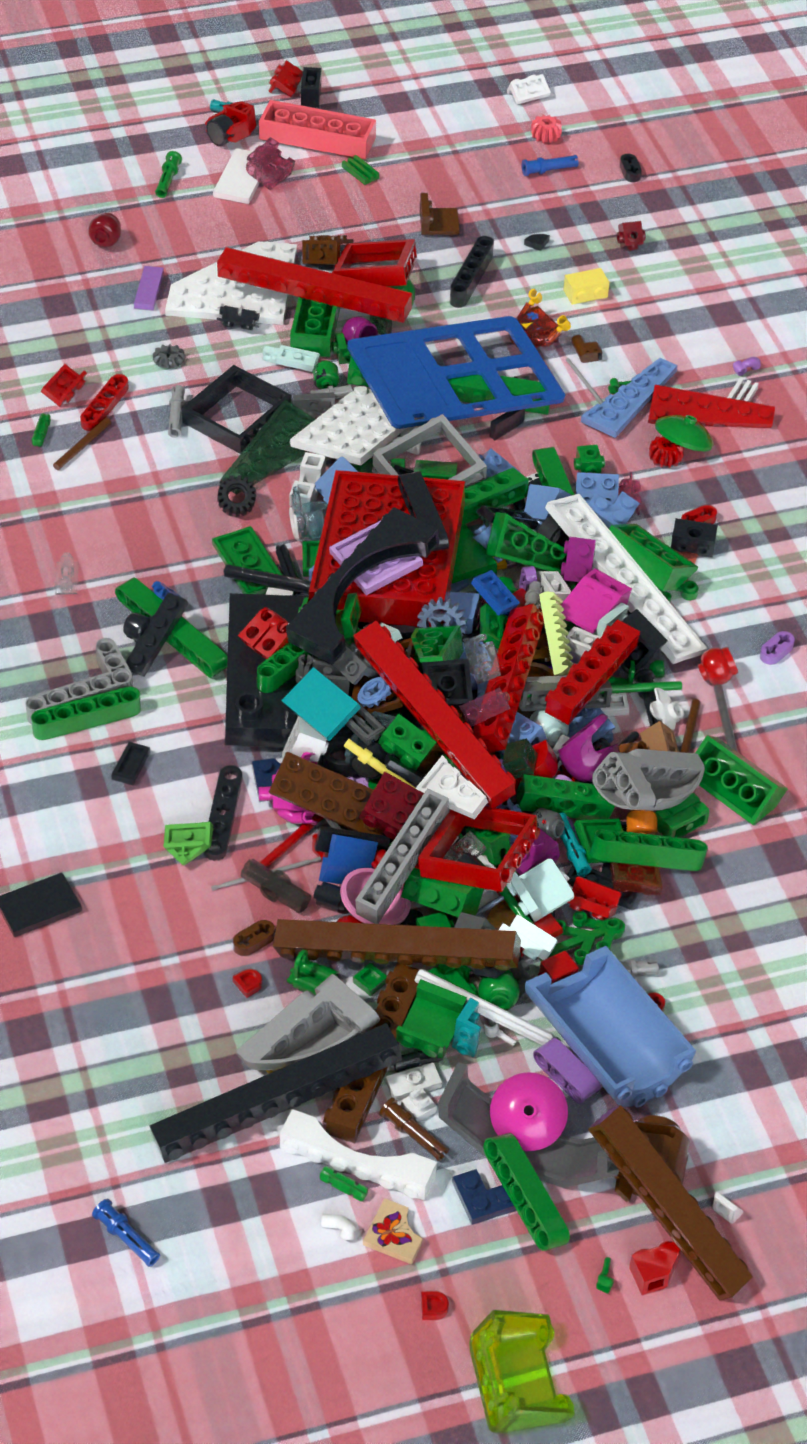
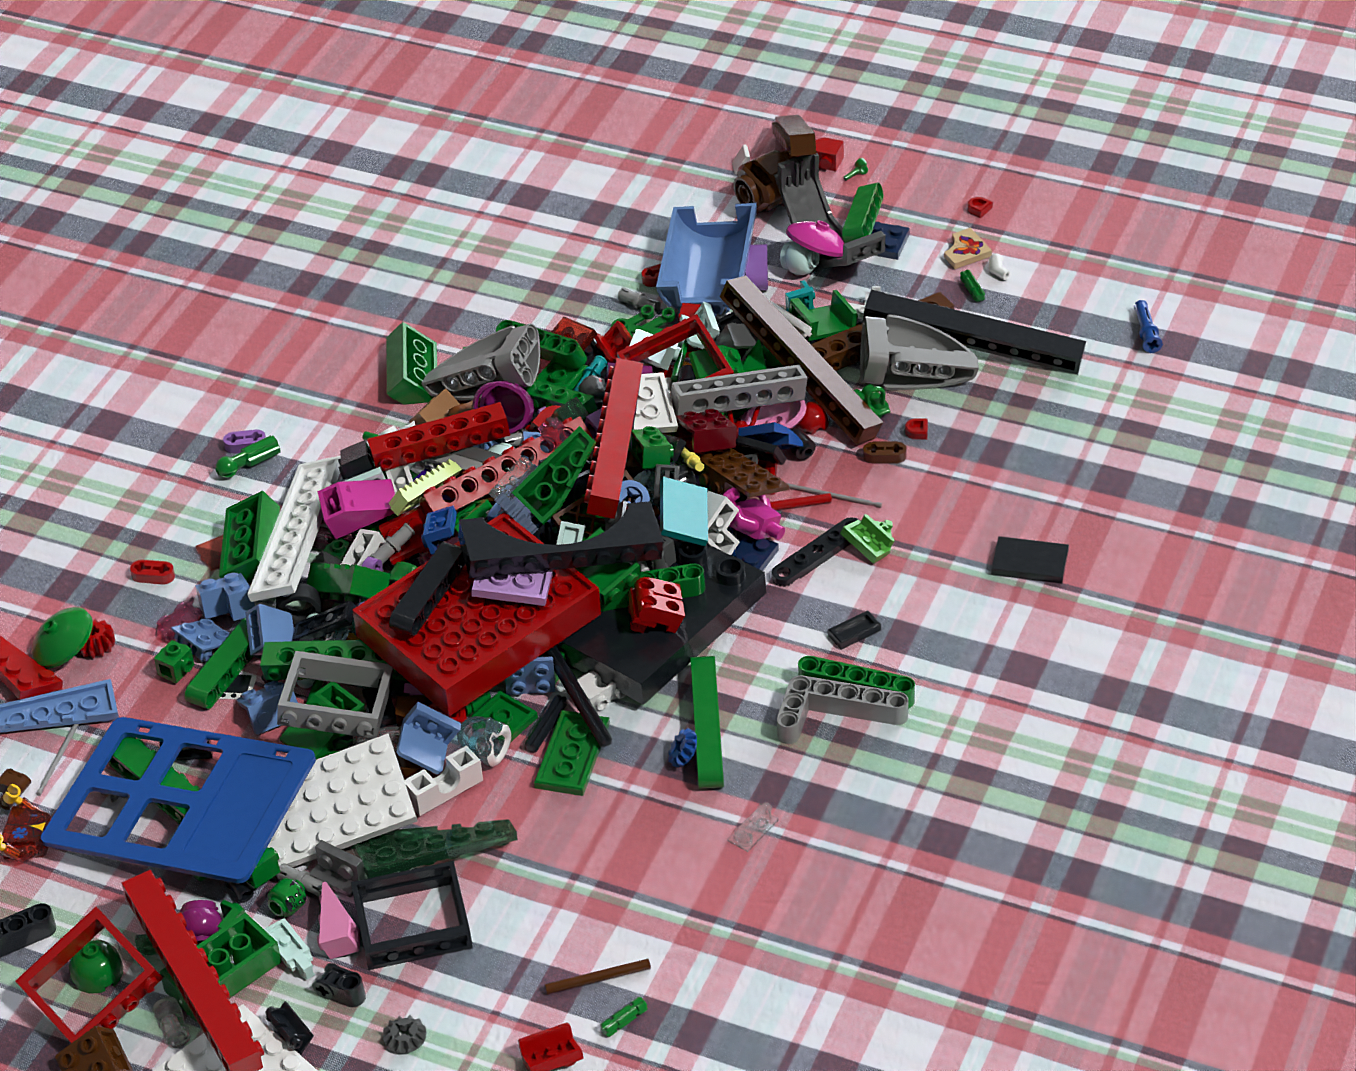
camera: 135 degrees left, 5 degrees down
(102, 401) = (525, 1009): red beam -> none
(152, 632) = (734, 711): black plate -> none
(176, 404) = (462, 959): light grey pin -> none
(234, 353) = (340, 986): none -> black piece
(240, 484) = (519, 808): black tyre -> none
(275, 885) = (834, 470): clear smoke piece -> none
(277, 375) = (337, 929): none -> bright pink slope
(404, 1173) = (929, 267): white arch -> none
(405, 1122) = (893, 280): reddish brown pin -> none
(515, 1372) = (974, 144): clear neon green windscreen -> none
(579, 558) = (324, 545): magenta bracket -> none
(615, 385) = (39, 736): green hand -> none
(690, 726) = (395, 420): reddish brown bar -> none
(694, 537) = (184, 551): black brick -> none
(717, 666) = (315, 439): red piece -> none
(725, 718) = (358, 413): flat silver bar -> none
(752, 632) = (250, 456): none -> green piece

